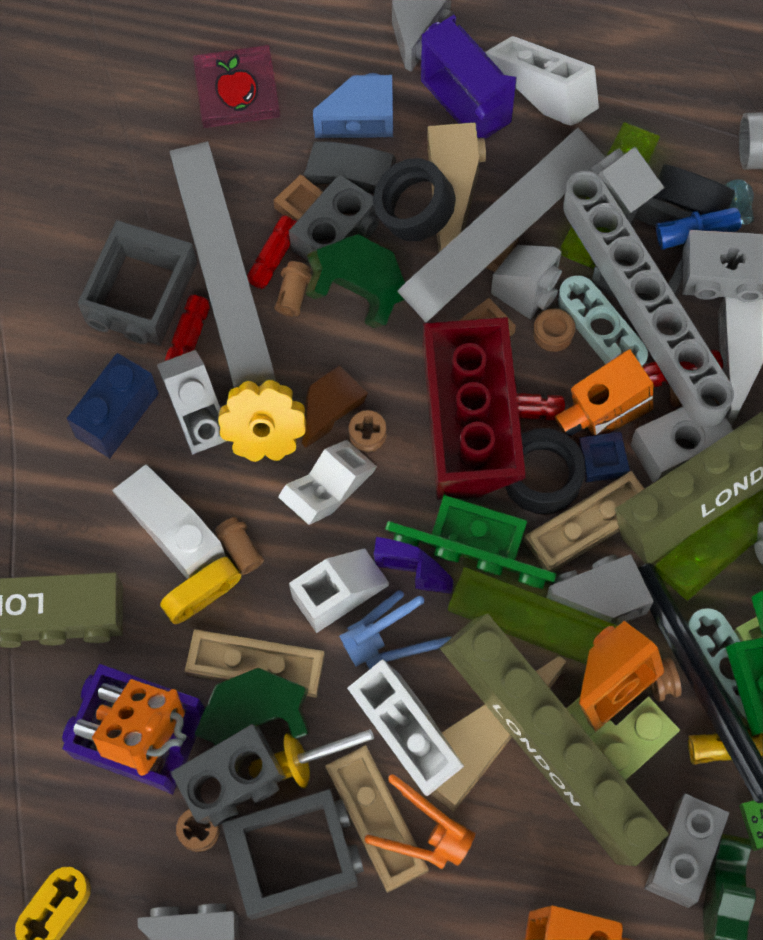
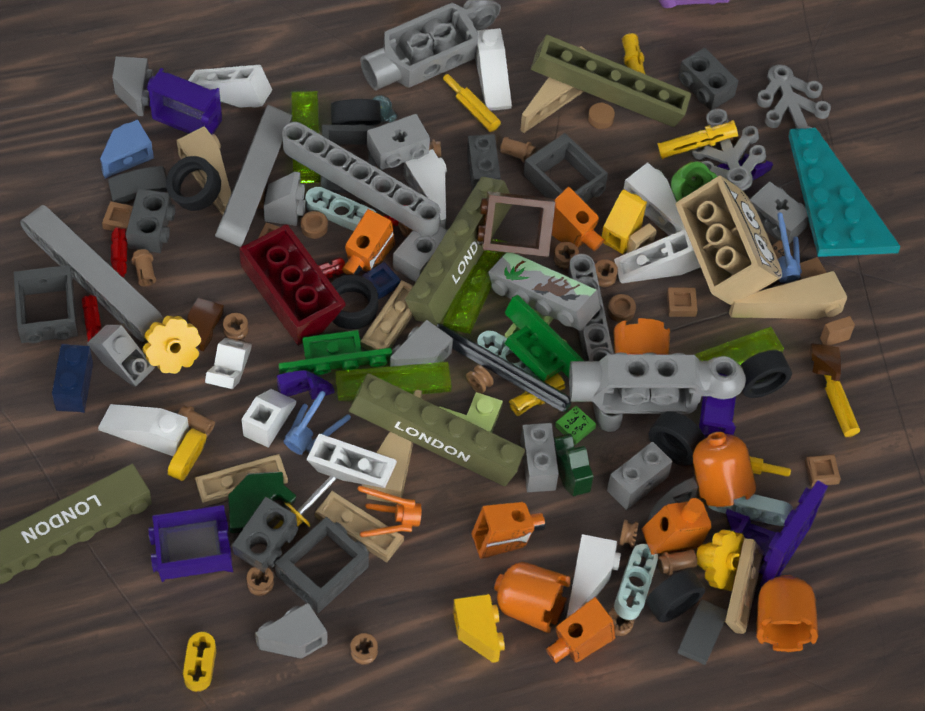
camera: 35 degrees left, 10 degrees down
(136, 725) = (195, 533): orange piece -> none
(236, 86) = (37, 168): clear pink tile -> none
(361, 269) = (183, 236): dark green piece -> none
(617, 672) = (454, 377): orange slope -> none
(628, 179) = (316, 116): light grey slope -> none
(676, 232) = (359, 136): blue axle -> none

